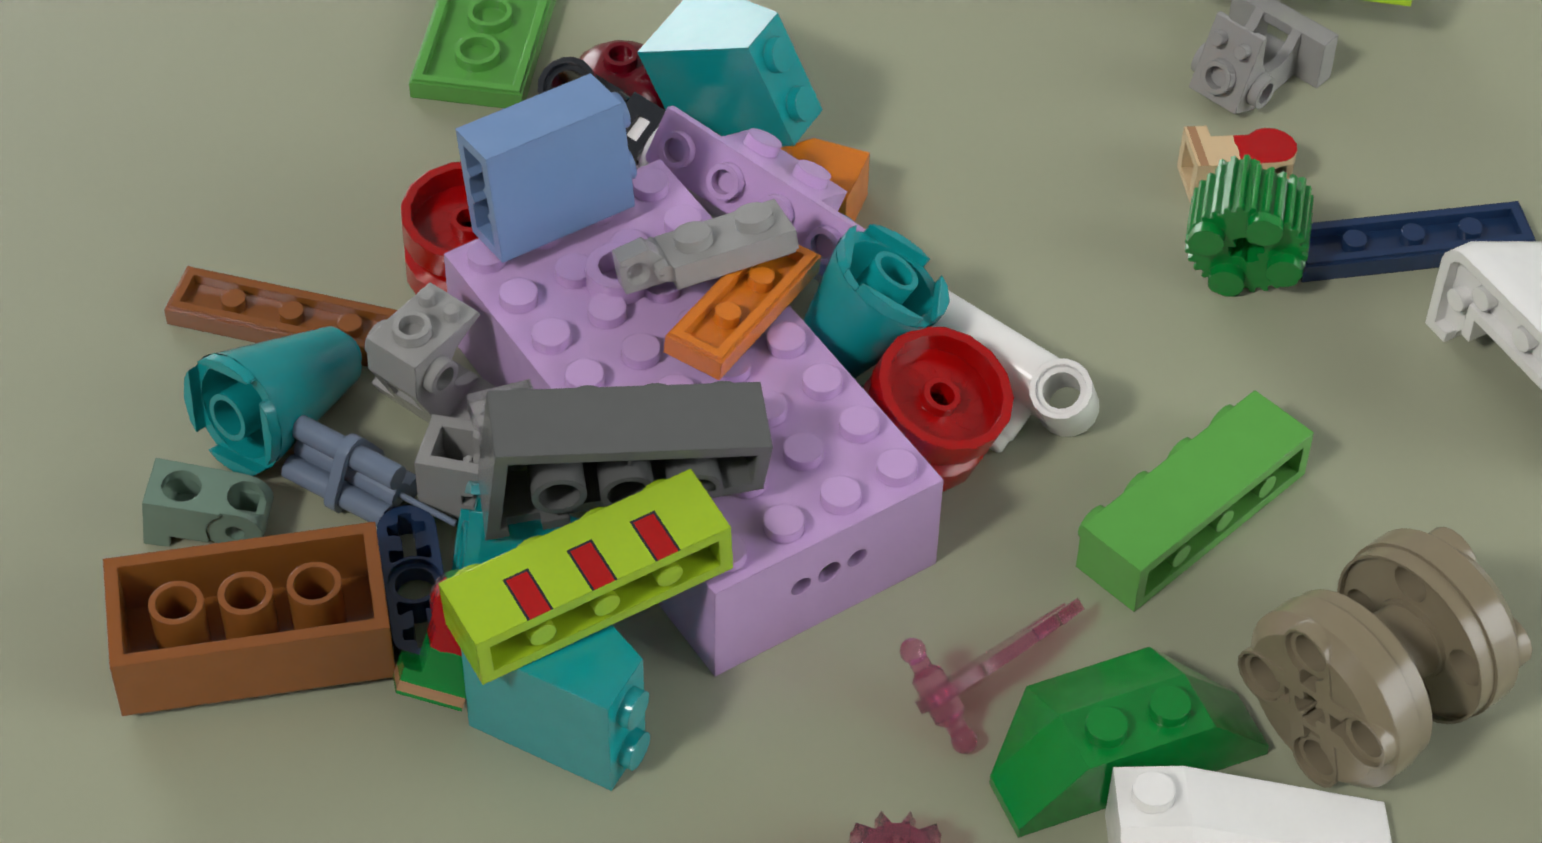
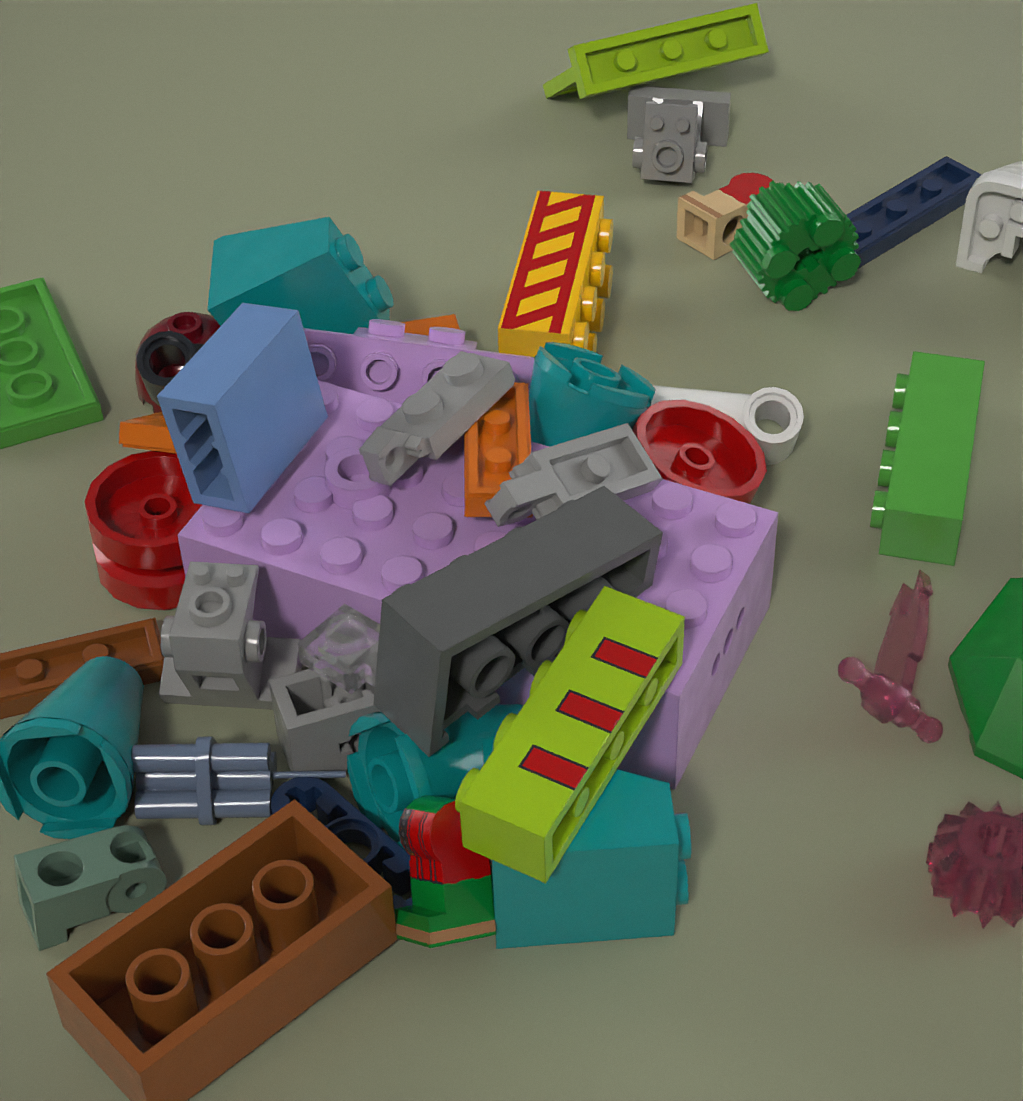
camera: 30 degrees left, 5 degrees down
(786, 361) = (573, 470): none -> light grey hinge
(975, 172) = (559, 276): none -> yellow brick

